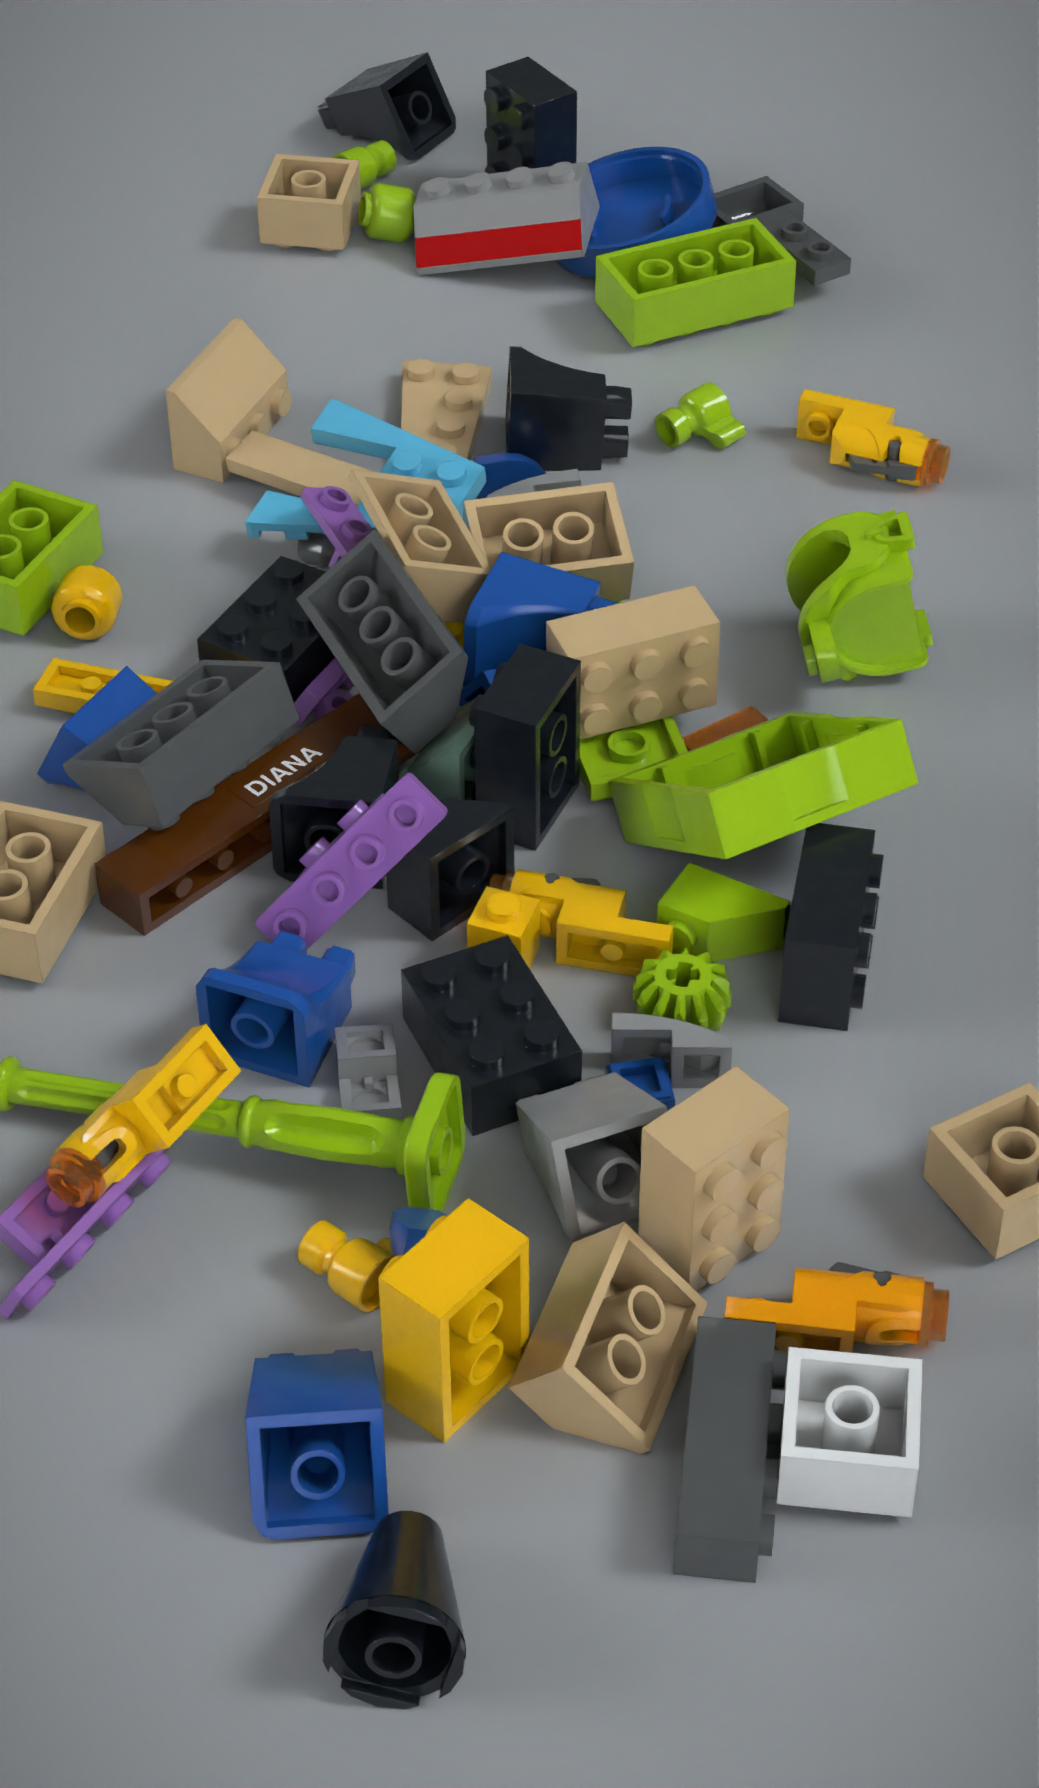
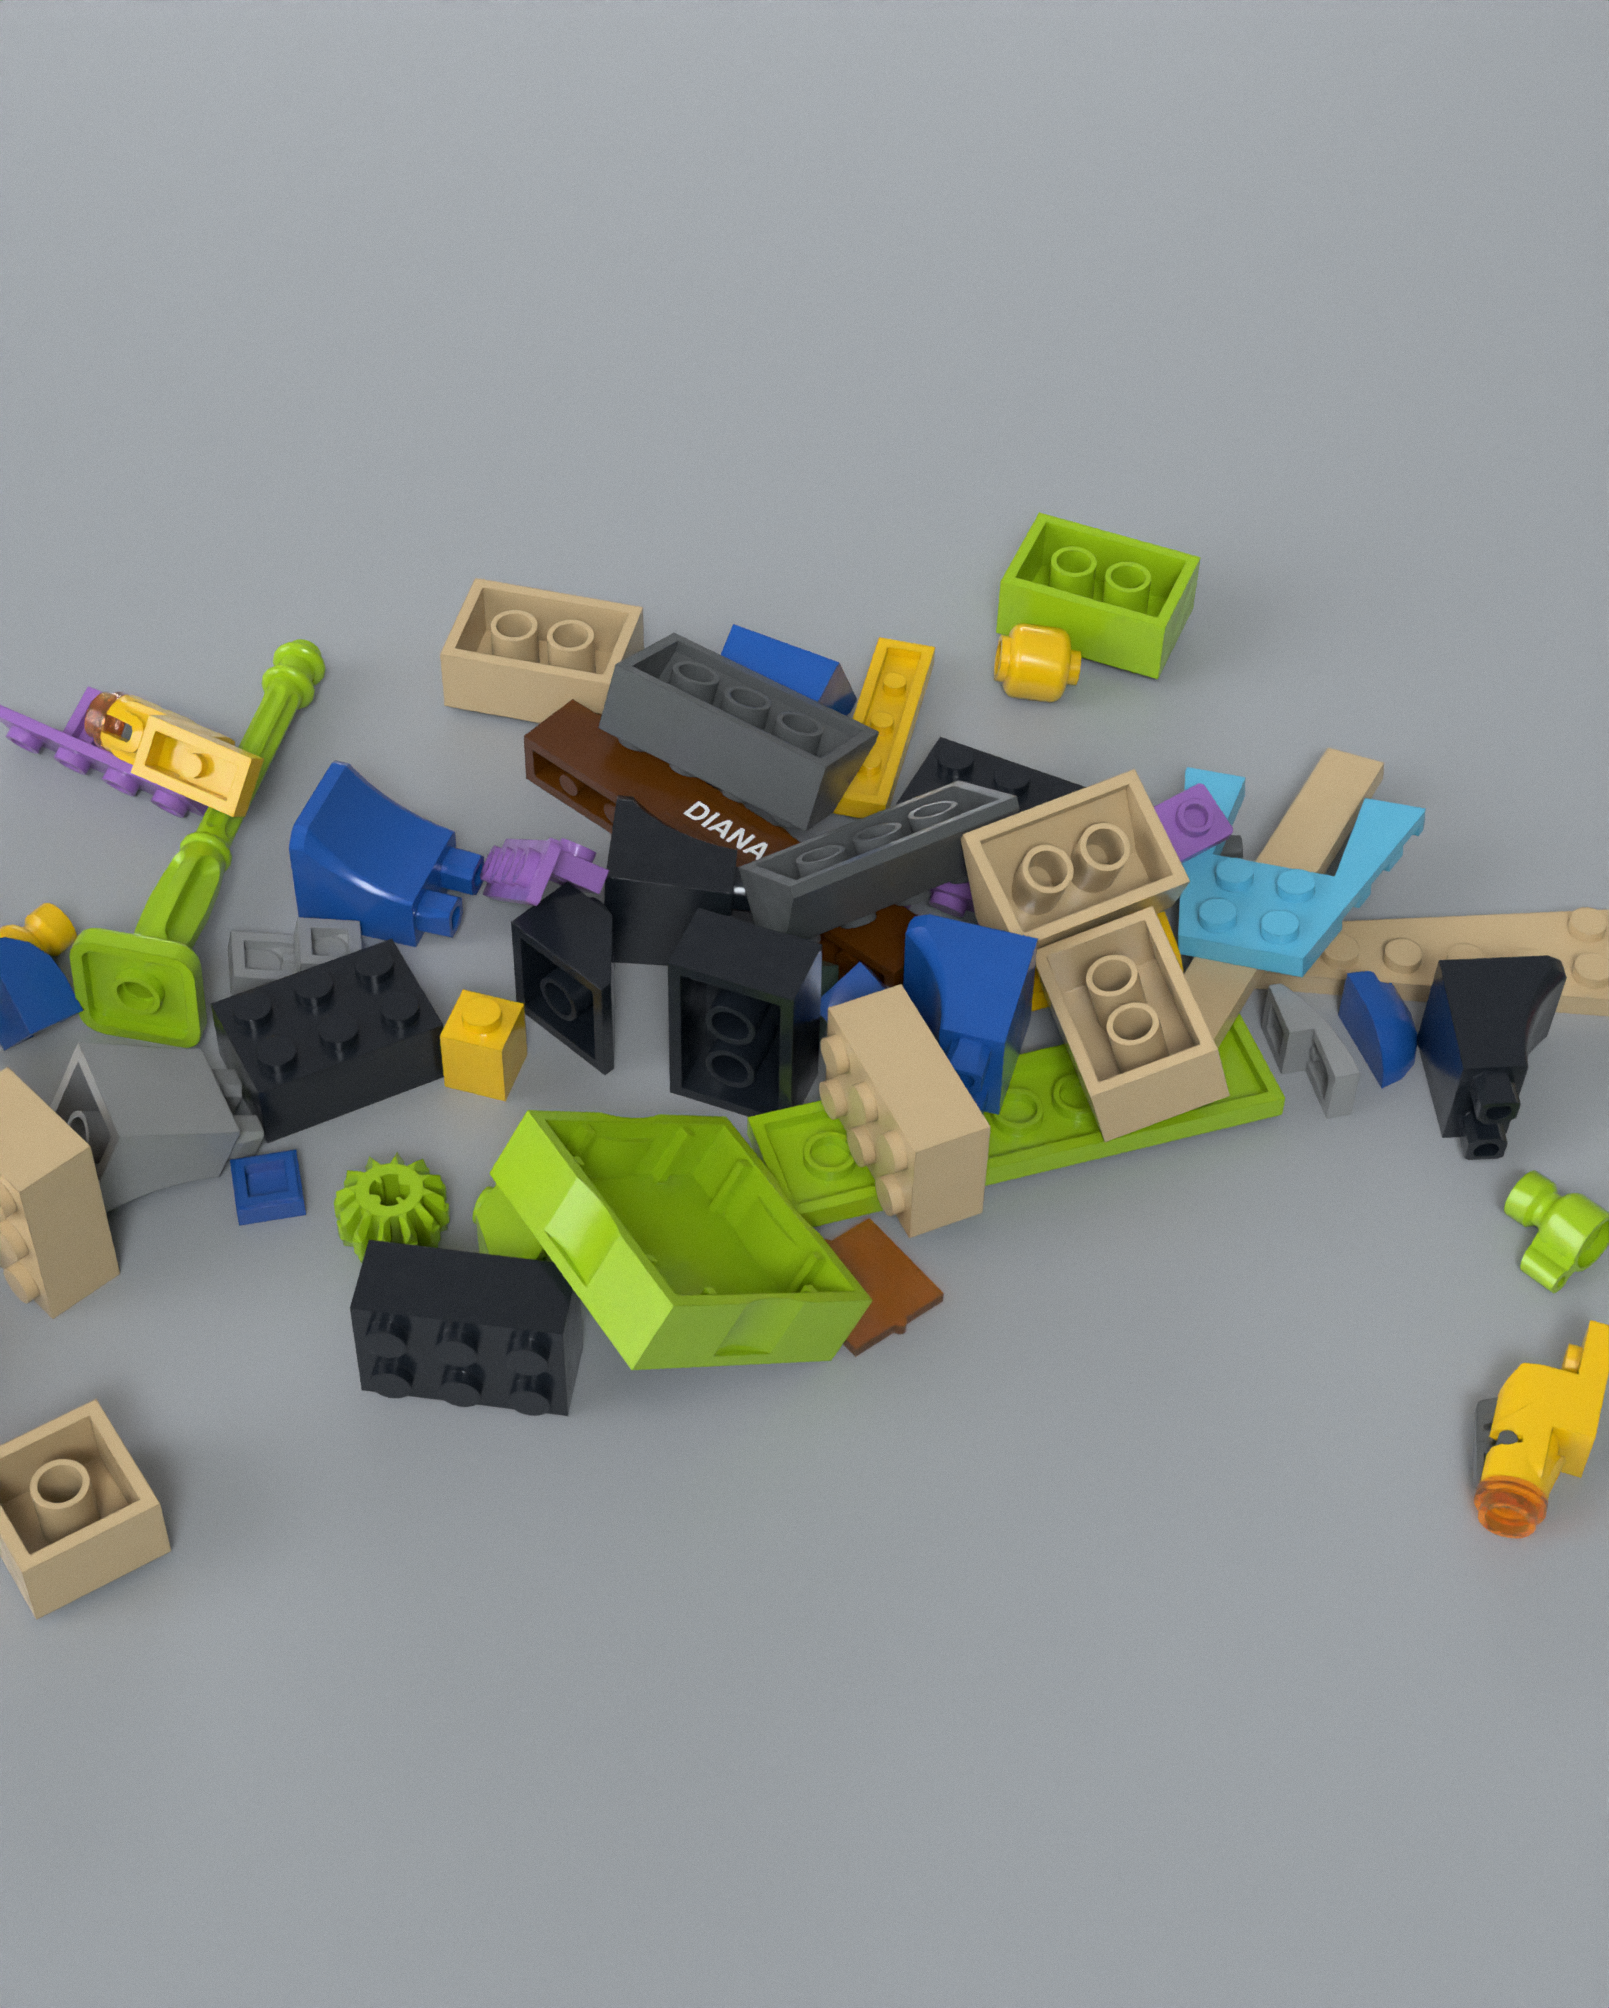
camera: 85 degrees right, 5 degrees up
(223, 398) = (1438, 729): tan slope -> none
(589, 922) = (543, 1077): yellow plate -> none
(690, 1051) = (302, 1204): light grey slope -> none
(857, 597) = (1087, 1378): lime animal -> none

